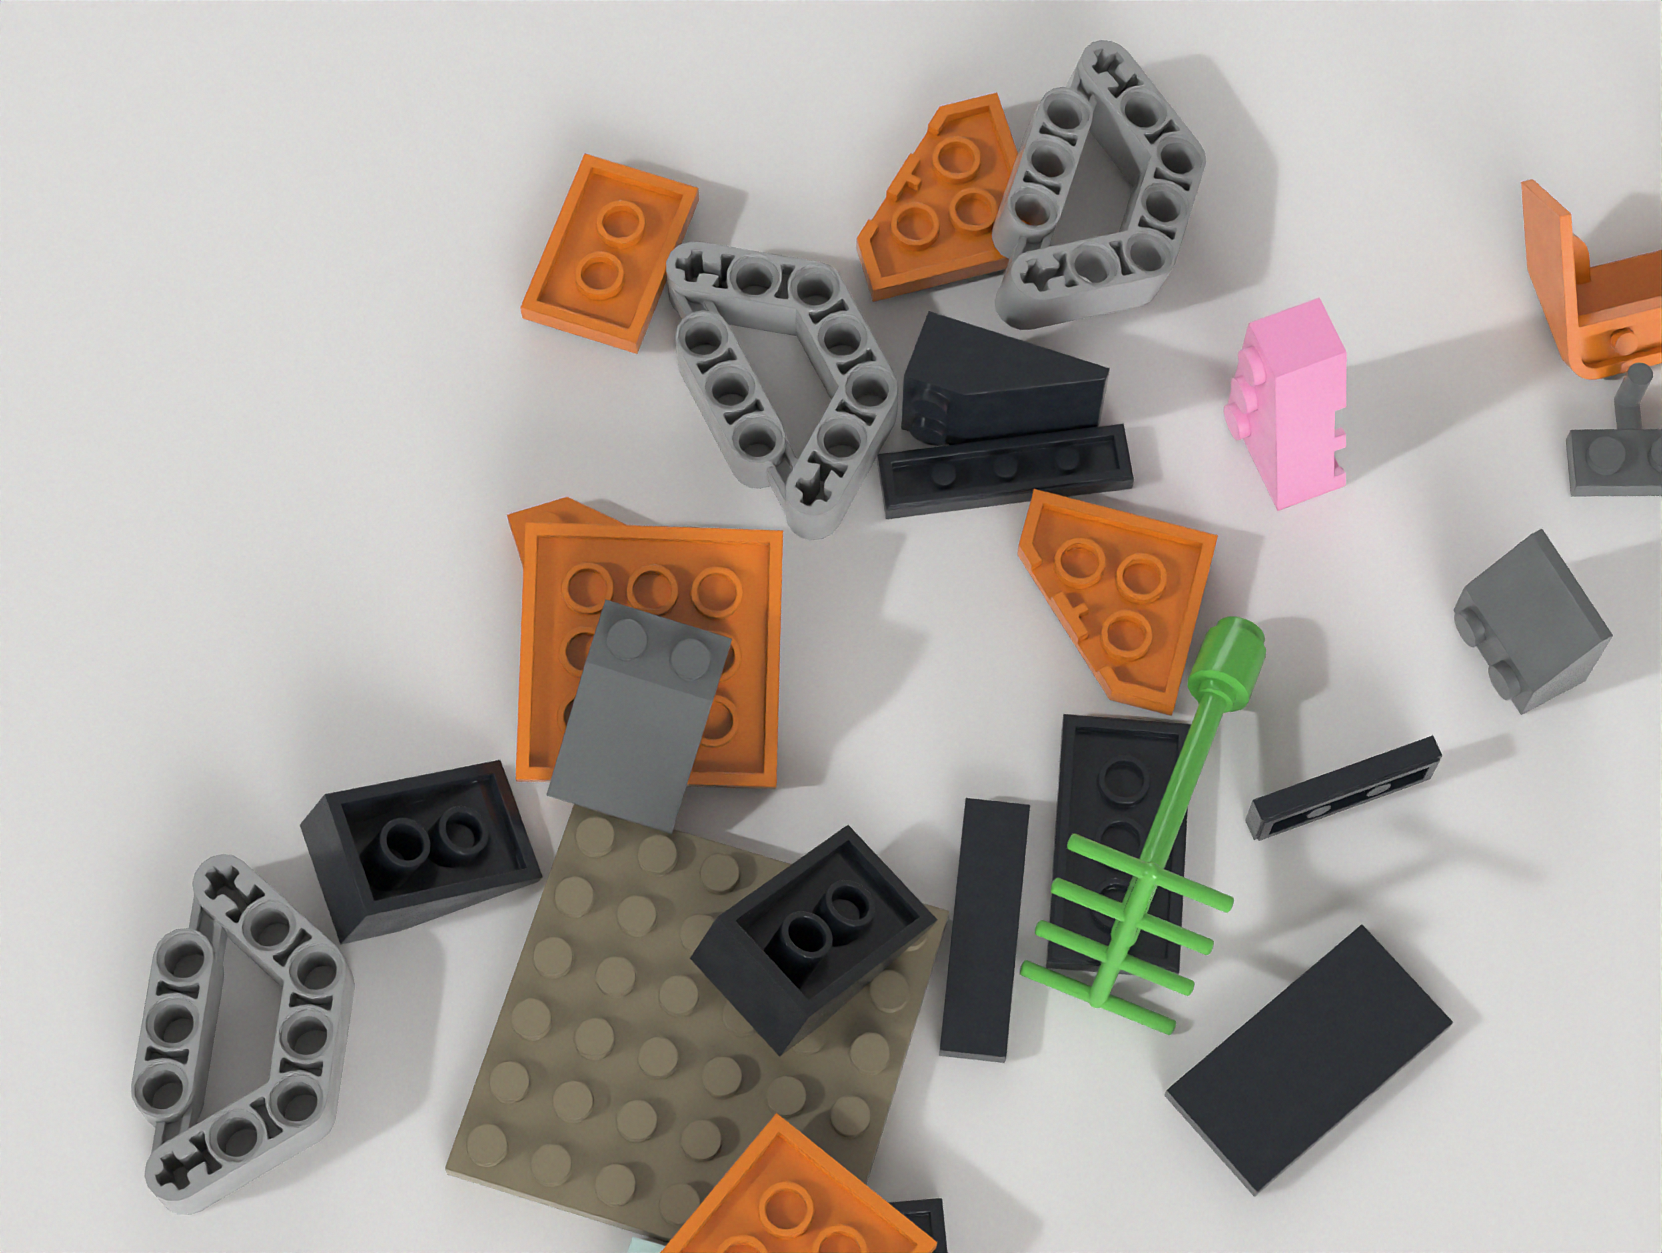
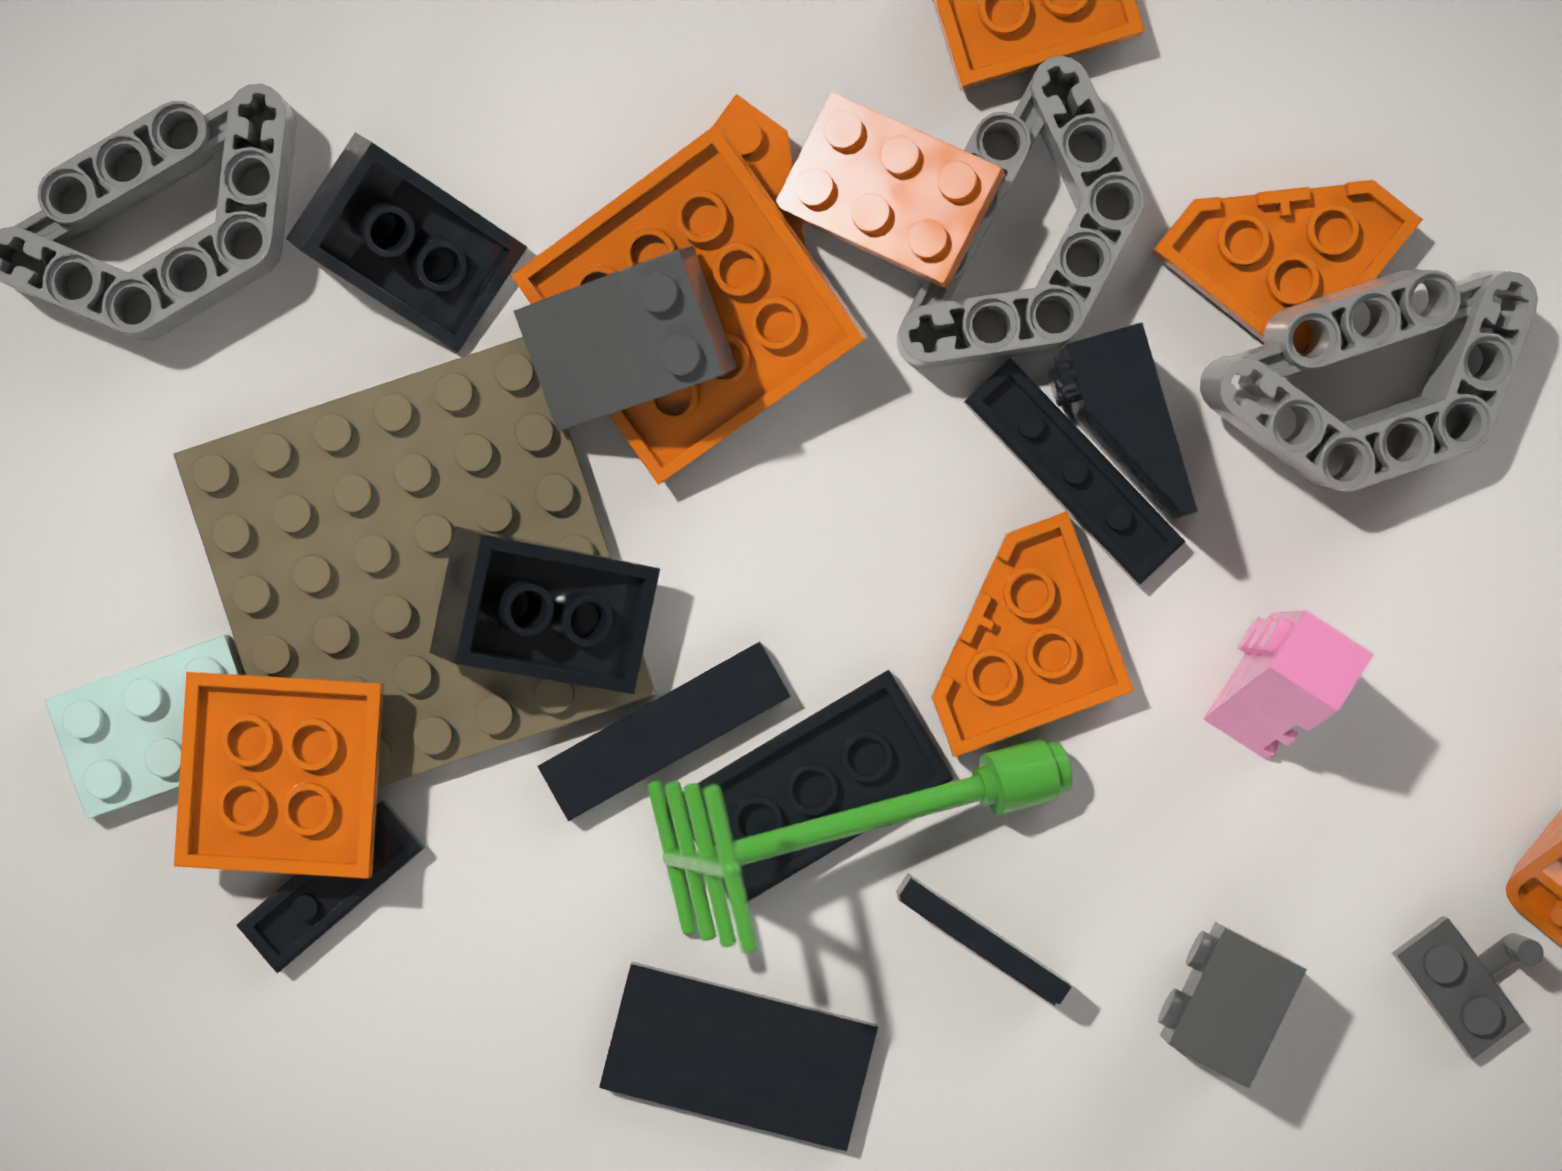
camera: 55 degrees right, 20 degrees up
(677, 440) = (889, 190): none -> plate

